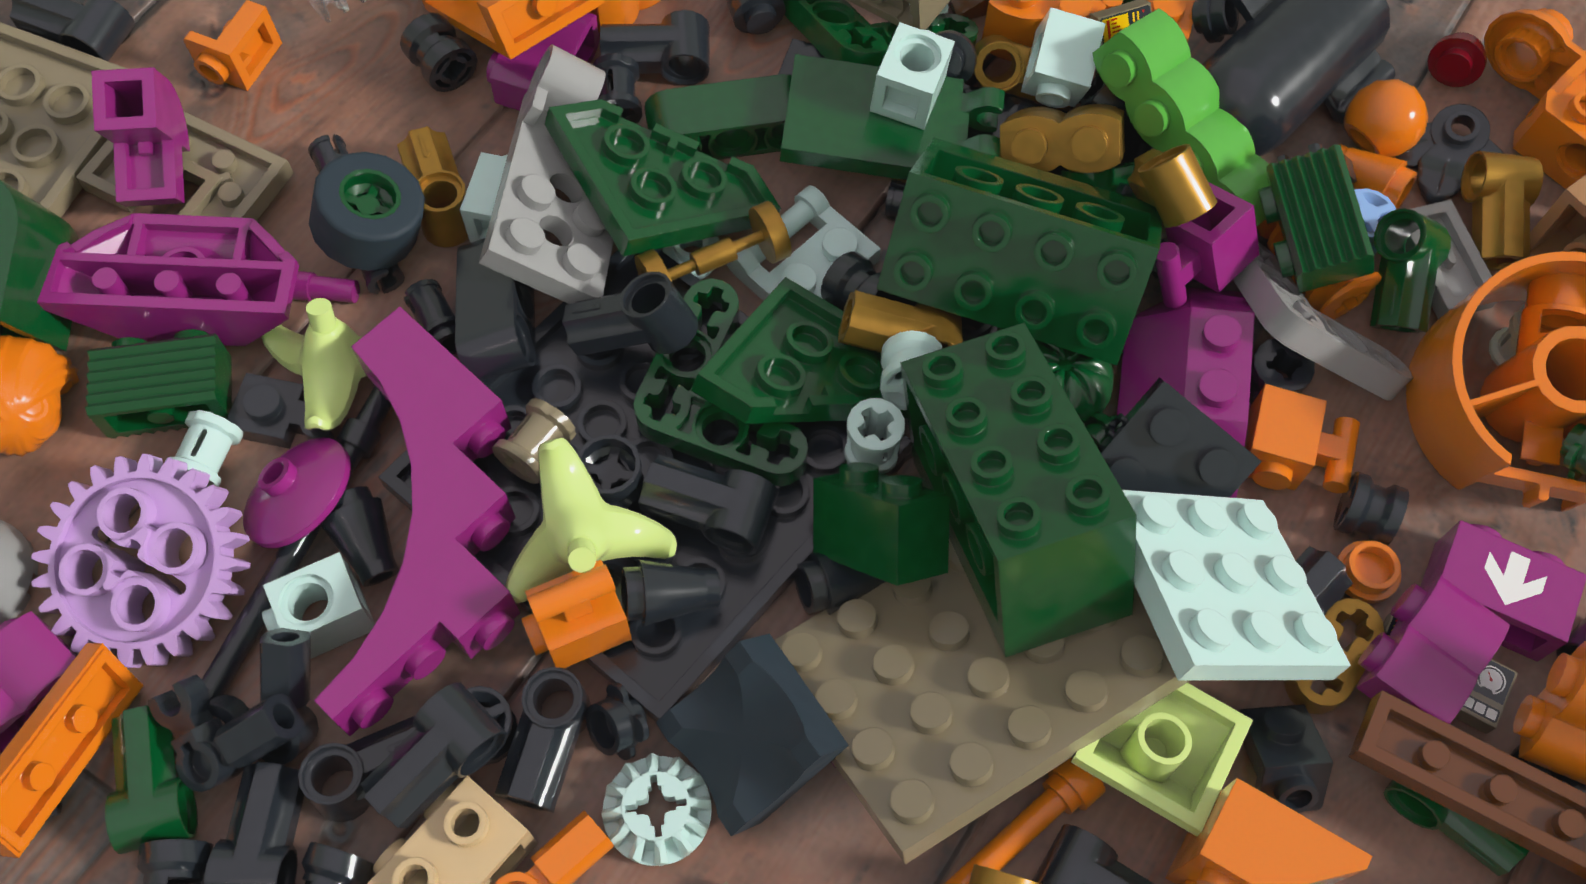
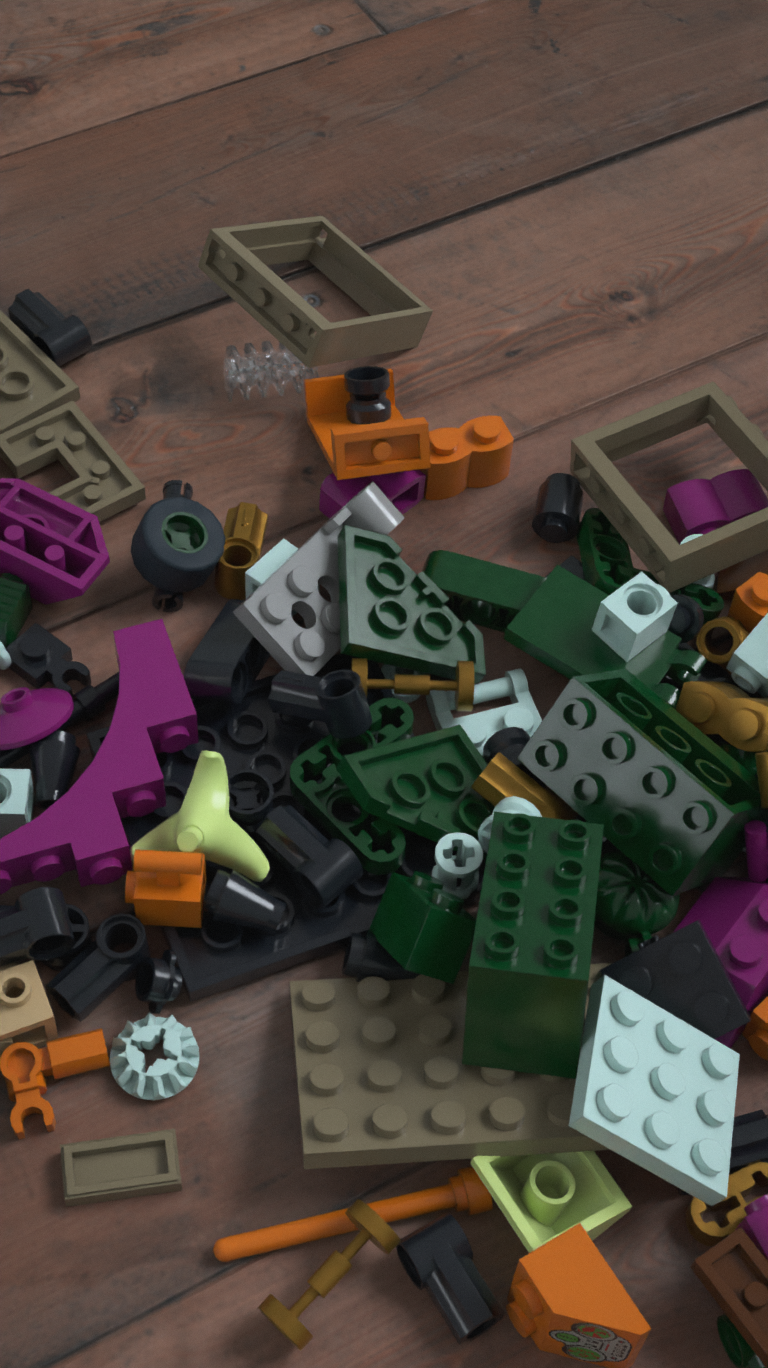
camera: 25 degrees right, 10 degrees down
(148, 134) = (58, 425): magenta brick -> none
(239, 51) = (154, 396): orange bracket -> none
(311, 286) = (114, 583): magenta piece -> none
(323, 361) = (91, 637): yellowish green piece -> none
(432, 311) = (187, 635): black pin -> none
(434, 47) = (295, 455): black wheel -> none
(540, 424) = (219, 741): dark tan bush -> none
(621, 88) = (415, 537): black bush -> none
(674, 48) = (473, 525): black piece -> none
(753, 733) = (248, 1030): black brick -> none
(1288, 756) = (650, 1255): black bracket -> none

